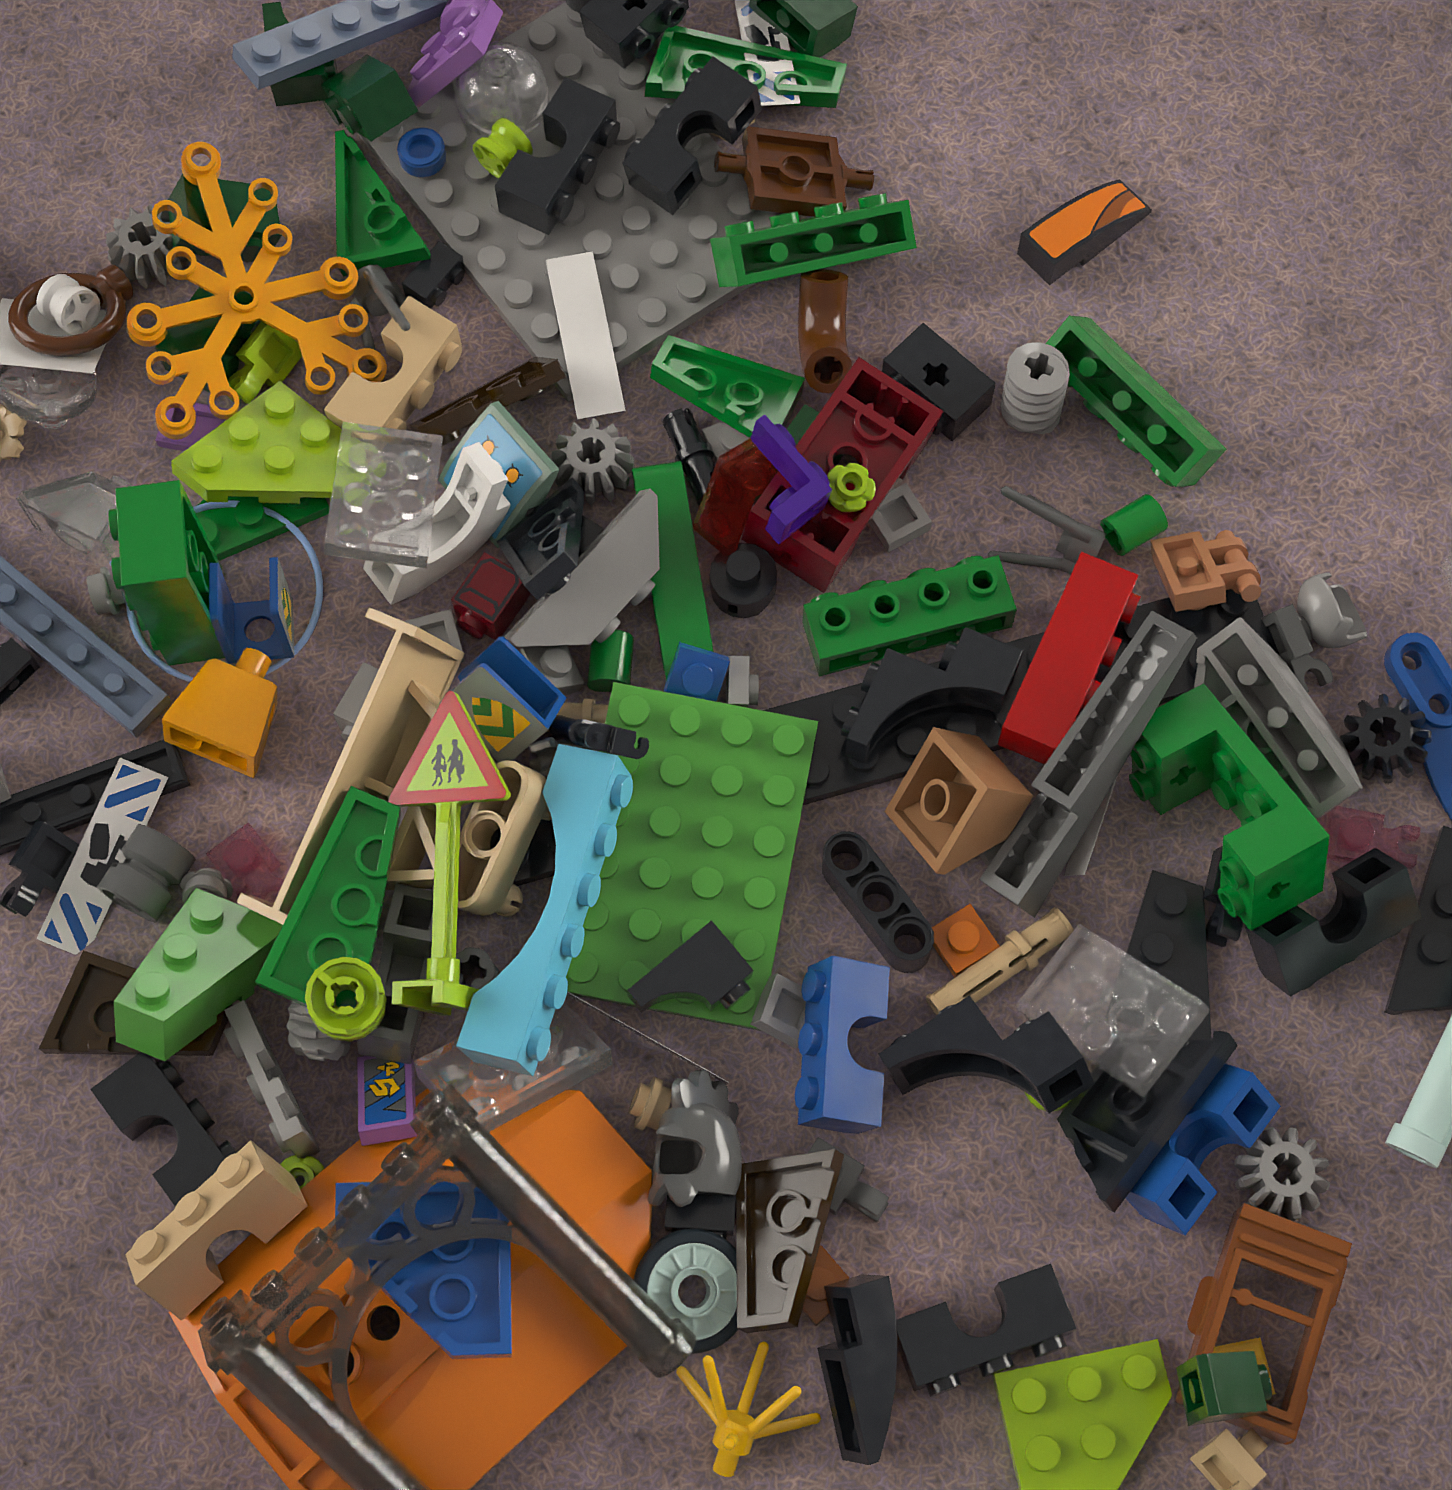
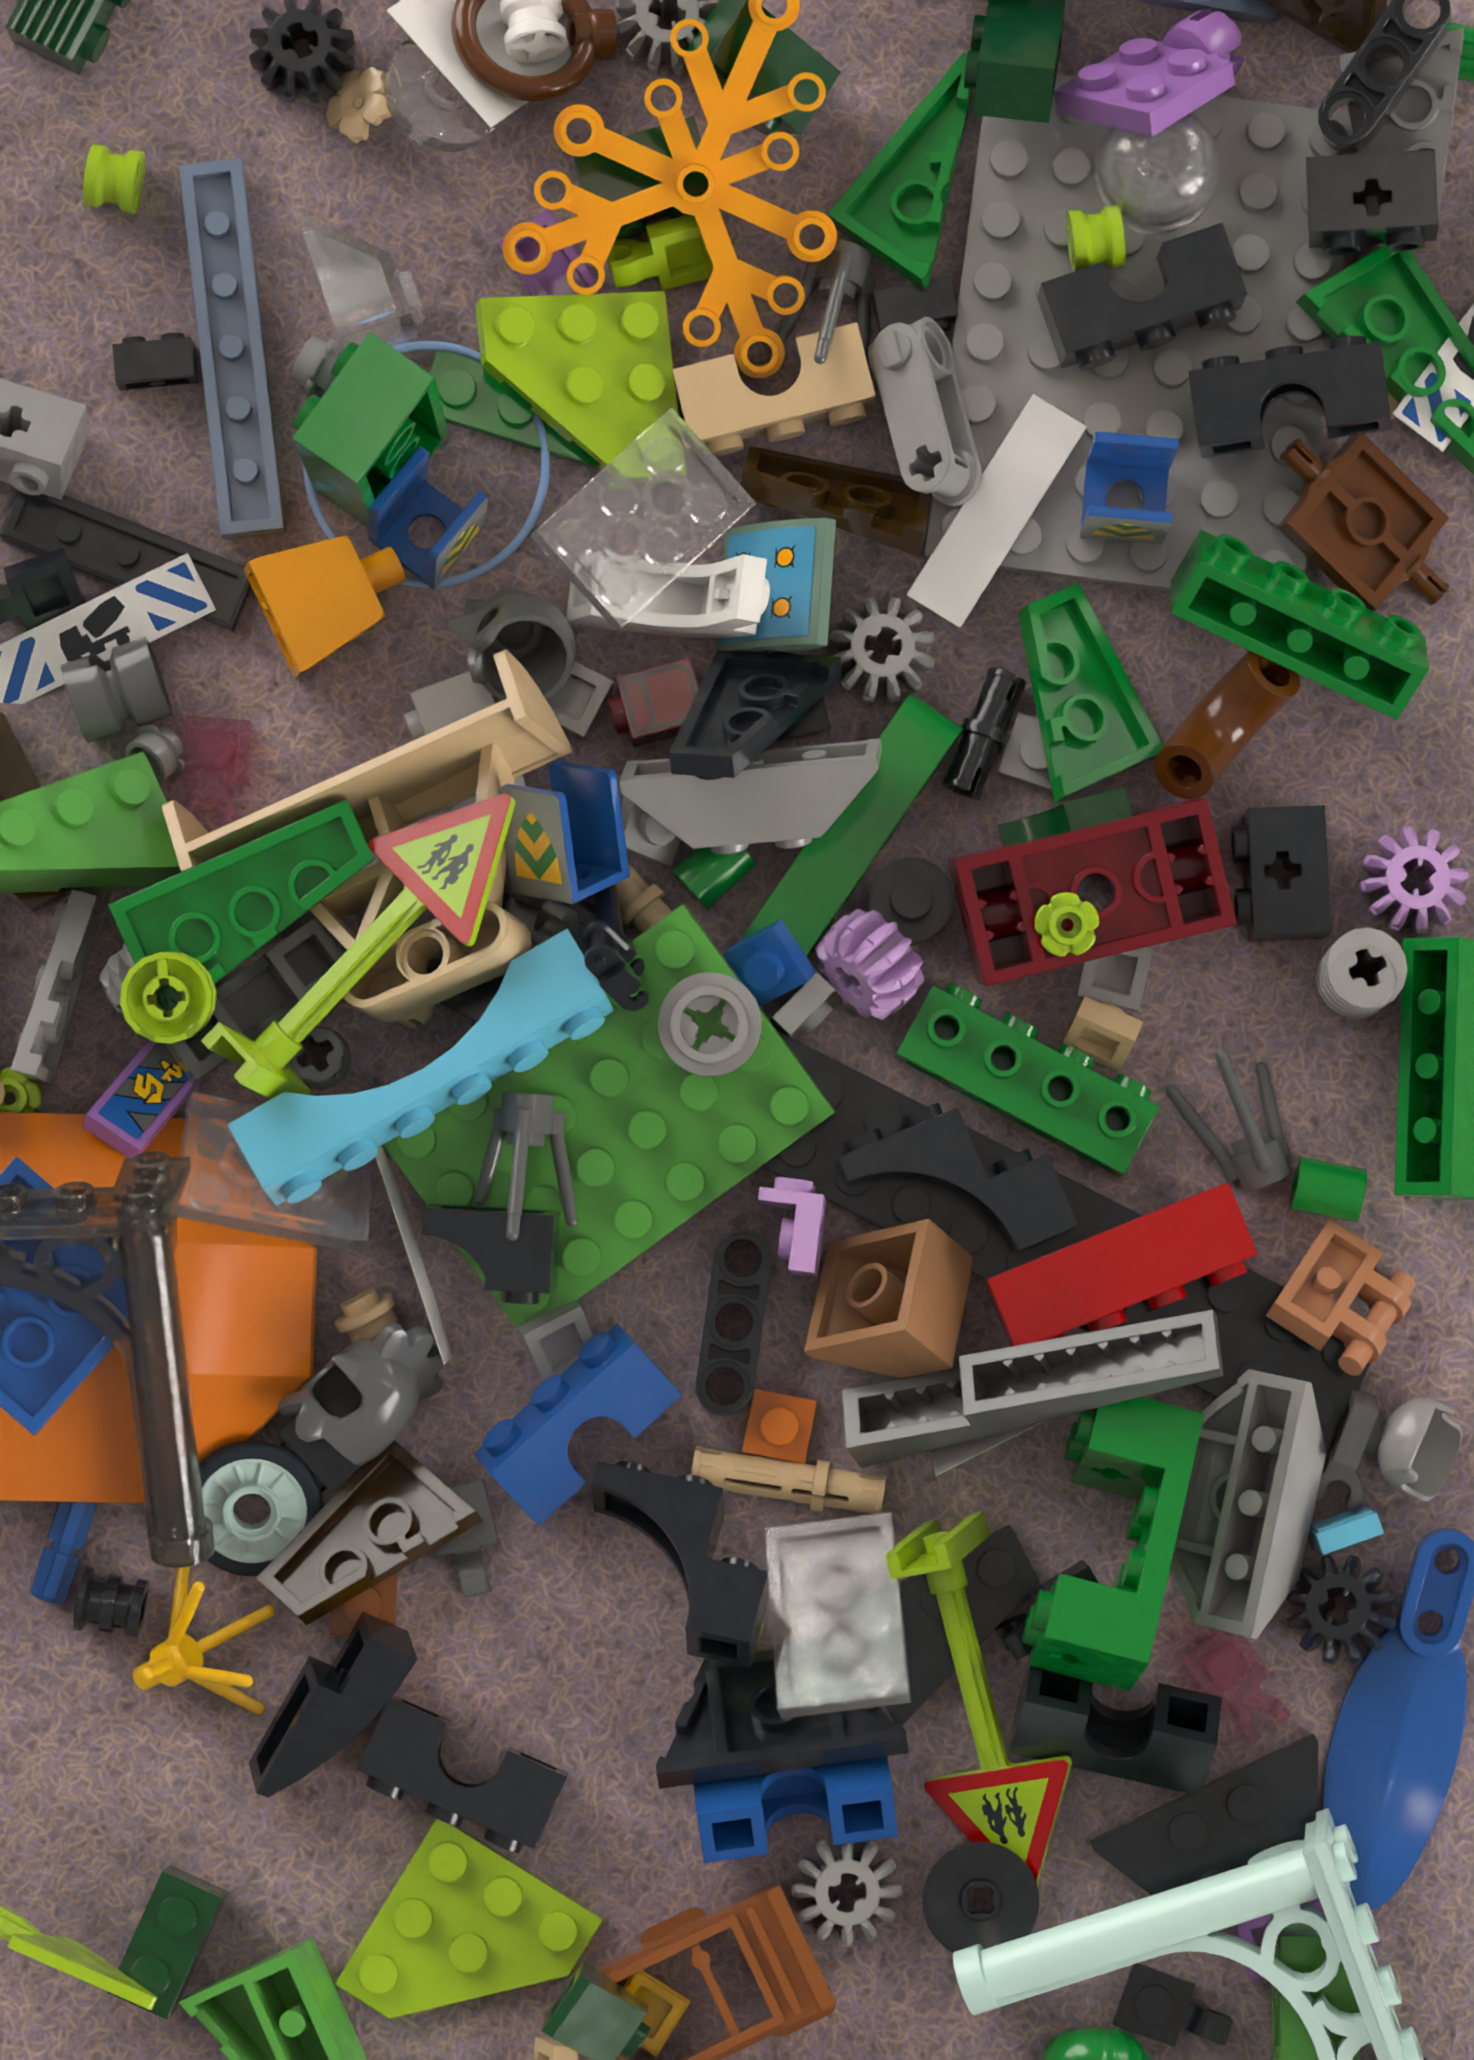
camera: 40 degrees right, 15 degrees up
(360, 637) = (526, 628): none -> dark grey piece
(421, 152) = (1019, 163): blue tile -> none
(494, 314) = (926, 410): none -> light grey piece
(600, 1446) = (58, 1563): none -> blue piece
(636, 241) = (1135, 460): none -> blue piece
(641, 887) = (526, 1122): none -> dark grey plant
(658, 1438) = (110, 1603): none -> black bush
(711, 709) = (679, 1031): none -> light grey gear
(730, 495) = (970, 813): clear red bracket -> none
(755, 625) = (870, 963): none -> lavender gear
(808, 480) = (989, 897): dark purple bracket -> none
(859, 790) = (803, 1236): none -> lavender bracket
(924, 549) = (1103, 1033): none -> tan plate
(1003, 309) = (1392, 874): none -> lavender gear
(1318, 1034) = (1003, 1799): none -> lime piece
(1340, 693) = (1344, 1529): none -> medium azure tile
(1377, 1084) = (978, 1866): none -> black piece

